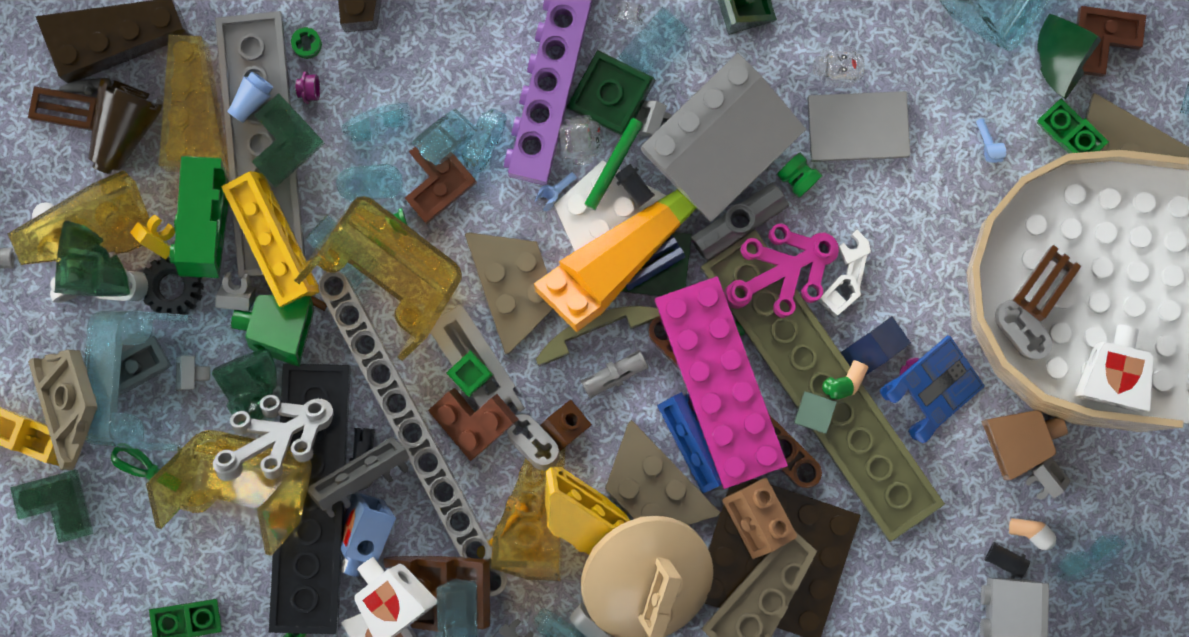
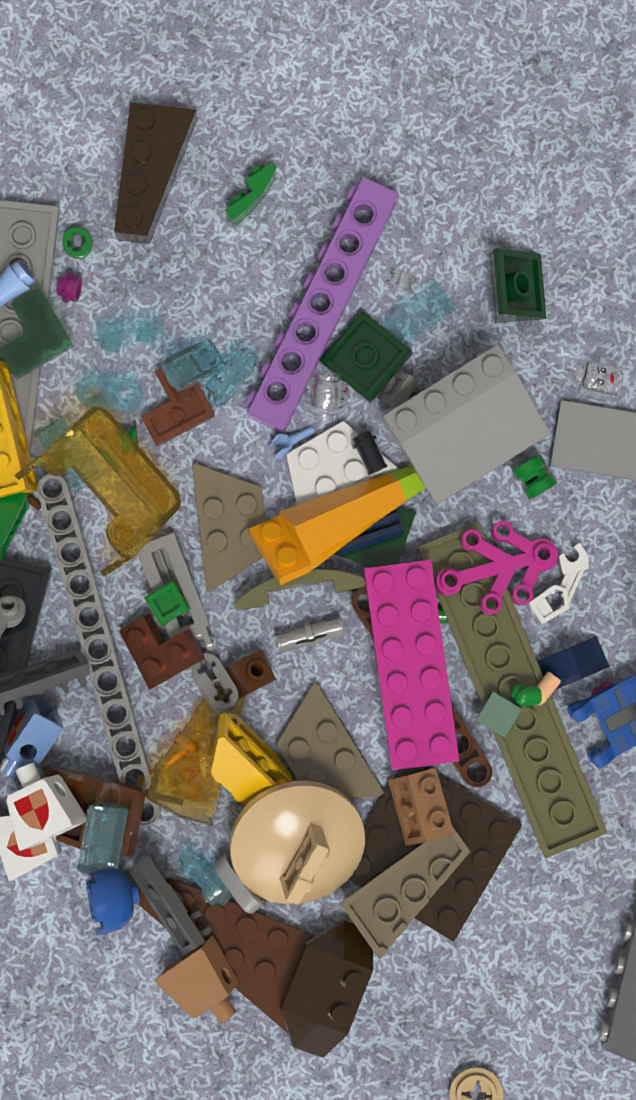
camera: 15 degrees right, 0 degrees up
(362, 441) = (48, 647): black pin -> none
(613, 164) = (353, 427): green bar -> none
(690, 440) = (369, 715): blue plate -> none
(756, 209) = (485, 502): dark grey piece -> none

